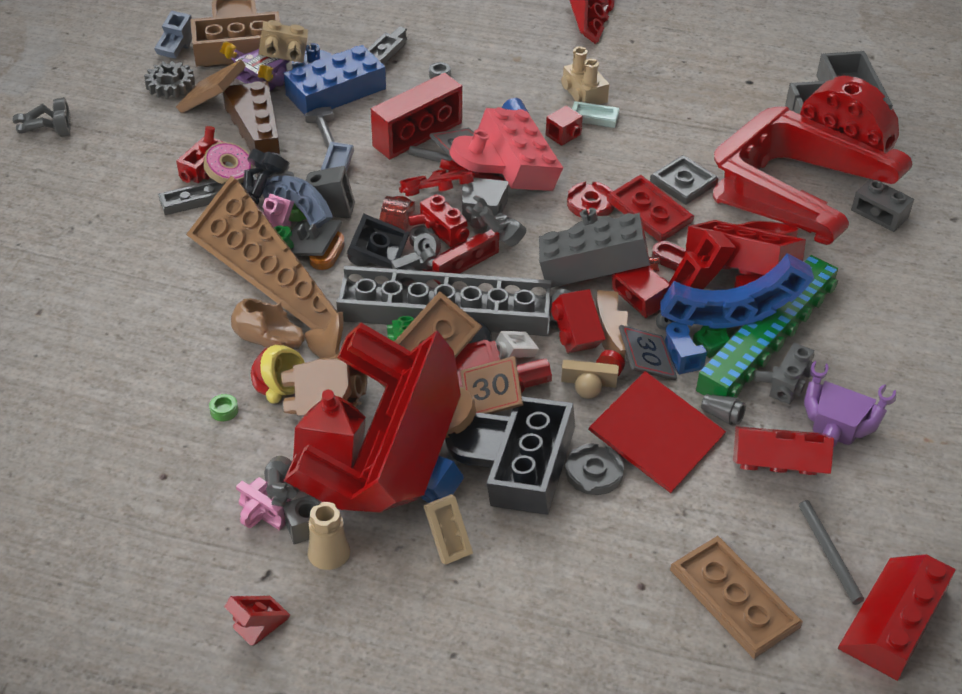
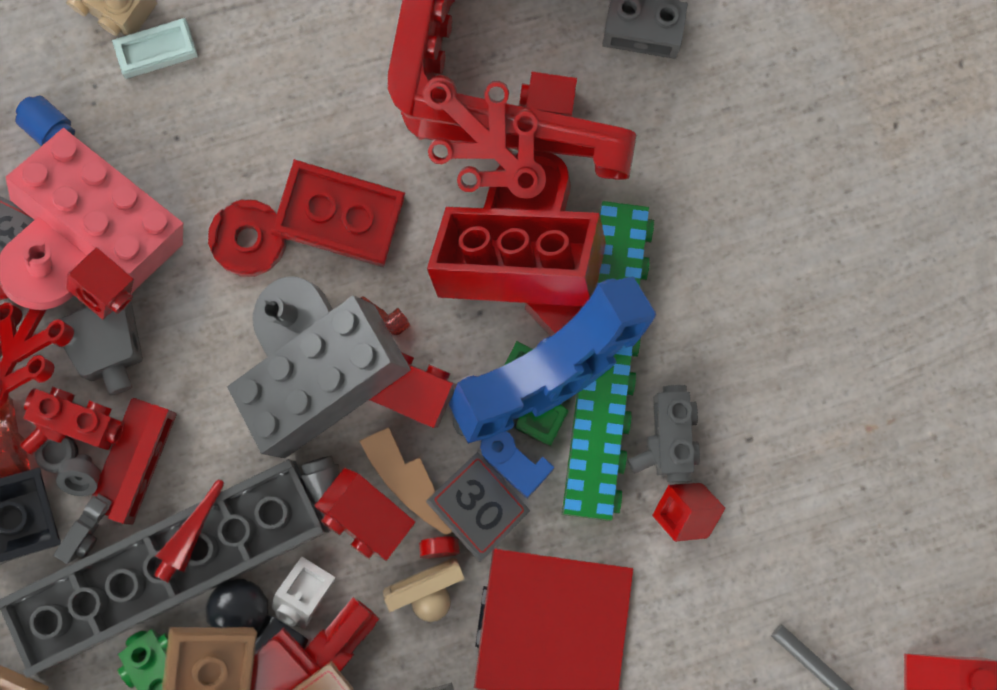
camera: 35 degrees left, 35 degrees up
(464, 283) = (180, 547): none -> red piece
(503, 164) = (100, 284): none -> red brick
(510, 230) = (155, 379): dark grey piece -> none
(563, 125) = (128, 107): red brick -> none
(669, 254) = (411, 289): red tile -> none
(684, 179) = (351, 118): dark grey tile -> none
(703, 264) = (475, 325): red slope -> none
(725, 408) = (615, 537): dark grey cone -> none
(759, 190) = (489, 143): none -> red plant
(779, 414) = (688, 511): none -> red panel
(783, 450) = (728, 582): red wedge -> none
(842, 411) = (761, 461): medium lavender torso -> none

